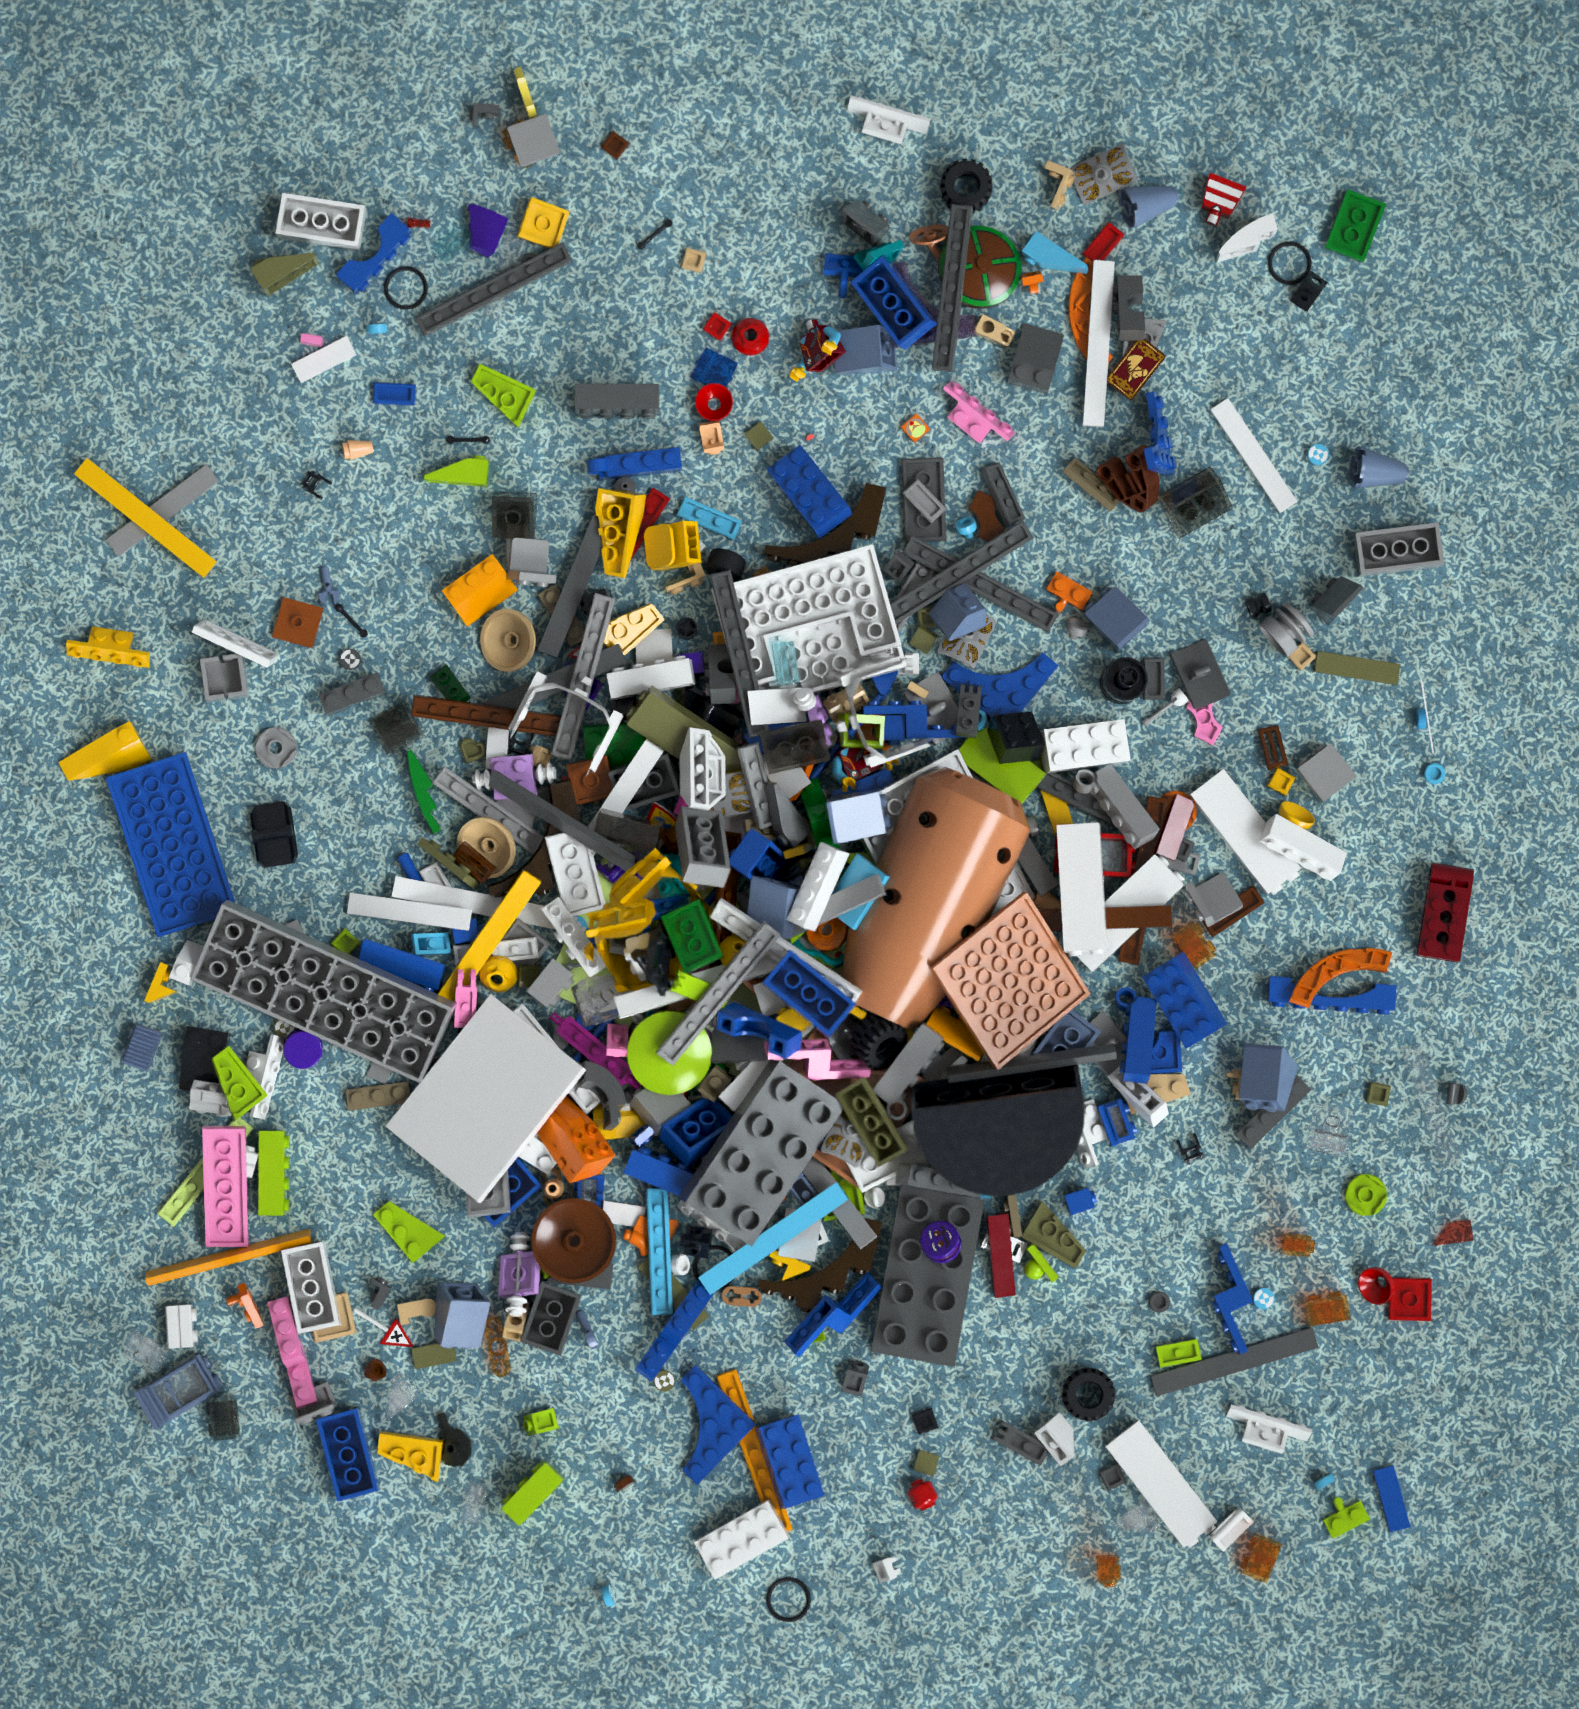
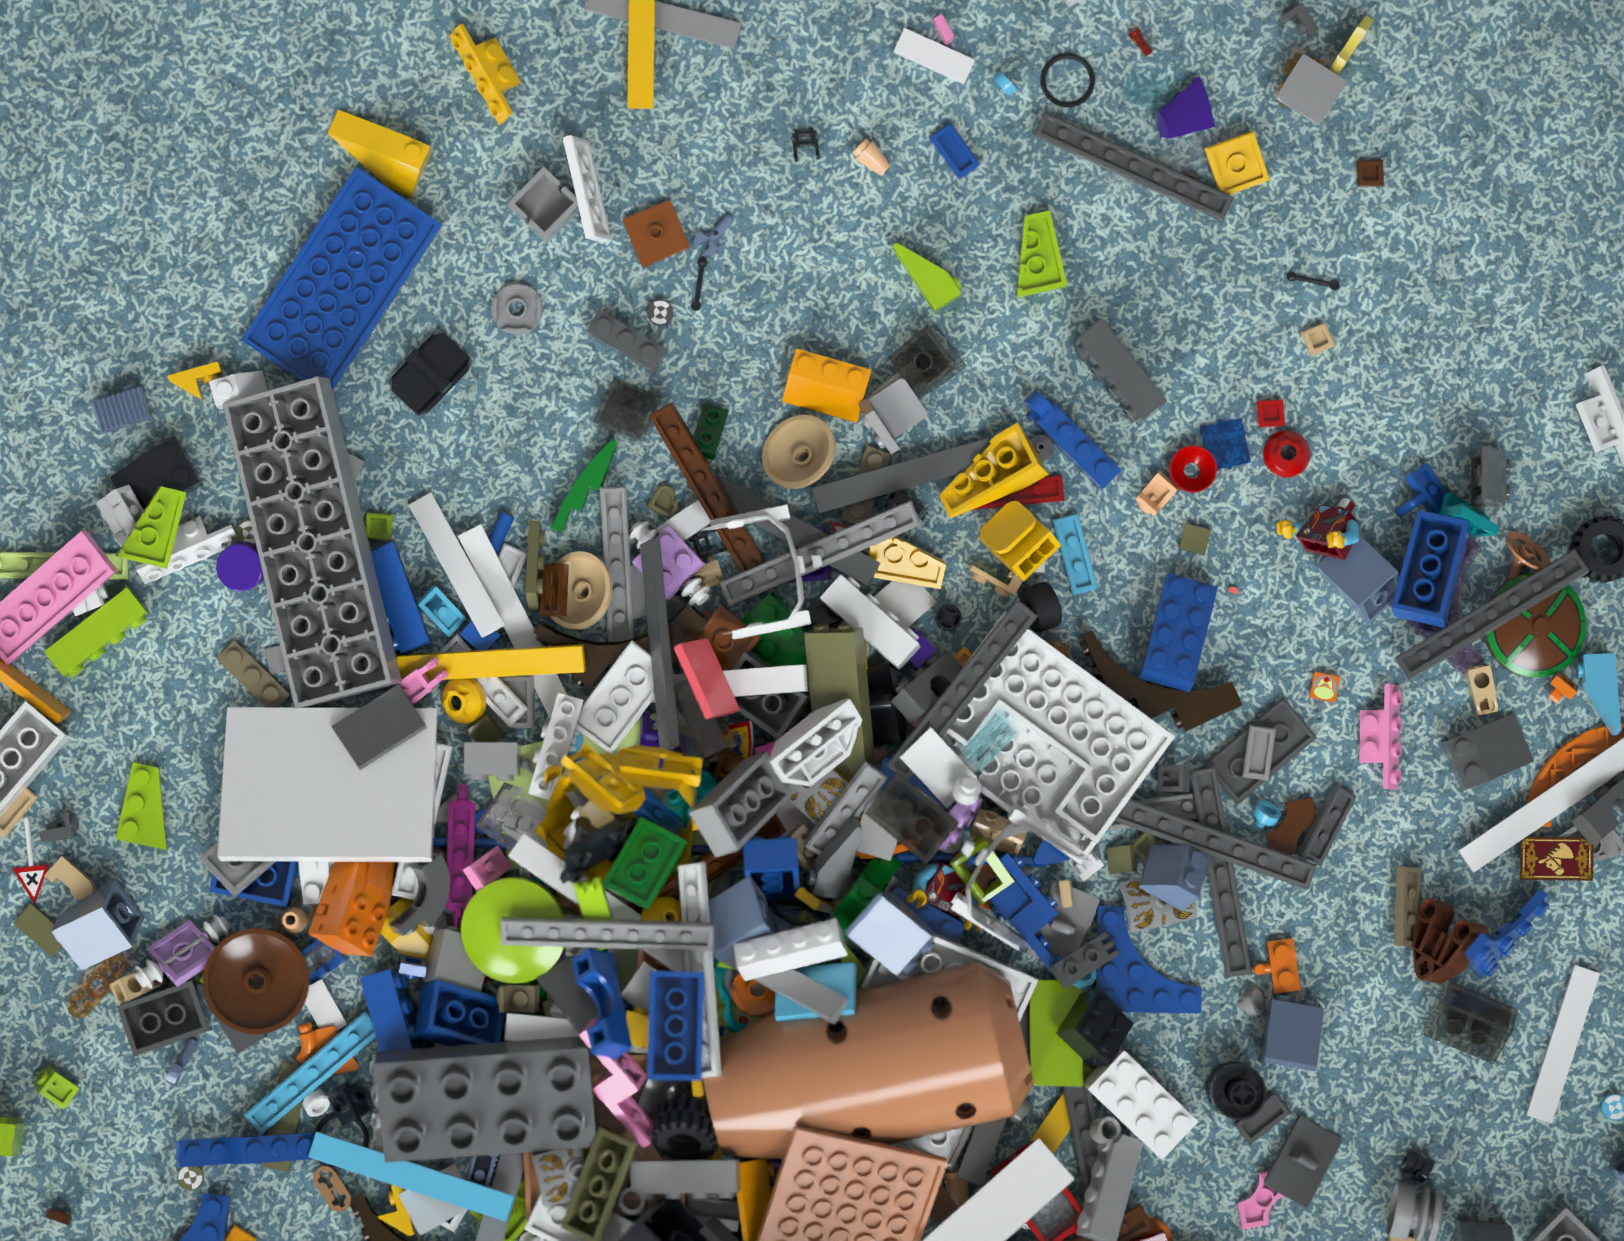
camera: 50 degrees right, 0 degrees up
(357, 273) = (1108, 27): blue arch -> none
(450, 439) = (953, 241): black hinge -> none
(474, 1038) = (379, 727): none -> dark grey tile
(606, 807) = (706, 678): none -> coral tile
(1177, 698) = (1260, 1157): hinge -> none

